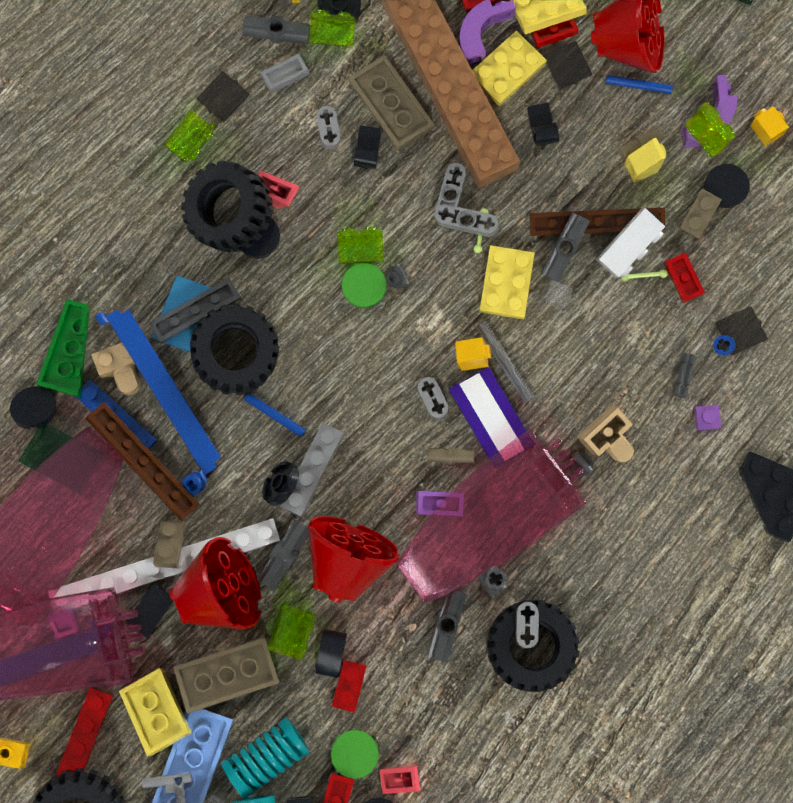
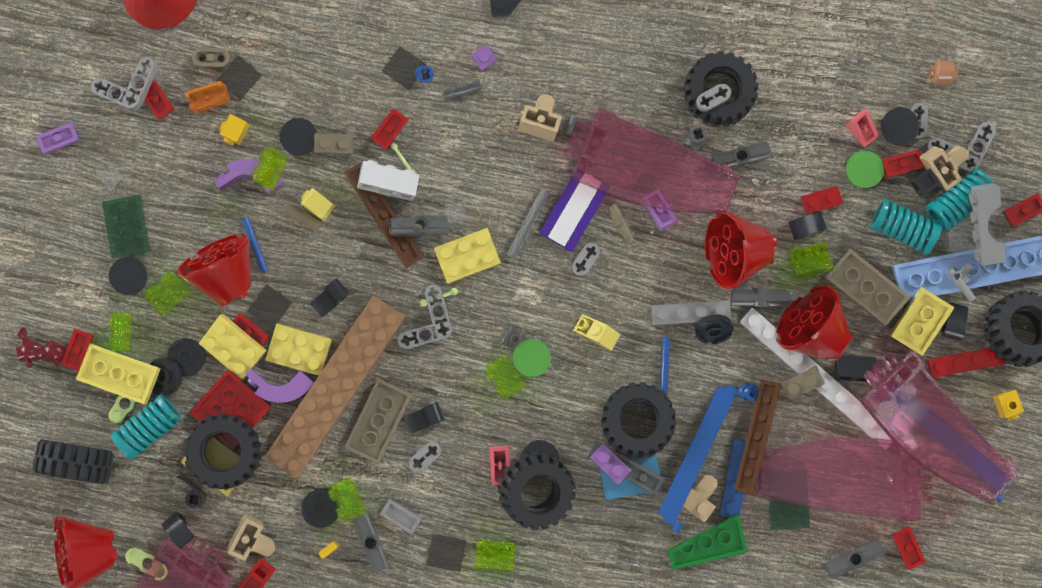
camera: 120 degrees left, 5 degrees up
(33, 407) = (765, 542): black tile -> none
(130, 750) = (956, 322): none -> black panel
(208, 295) = (610, 464): none -> medium lavender plate
(350, 364) = (597, 332): none -> light yellow slope
(472, 354) = (538, 248): yellow brick -> none

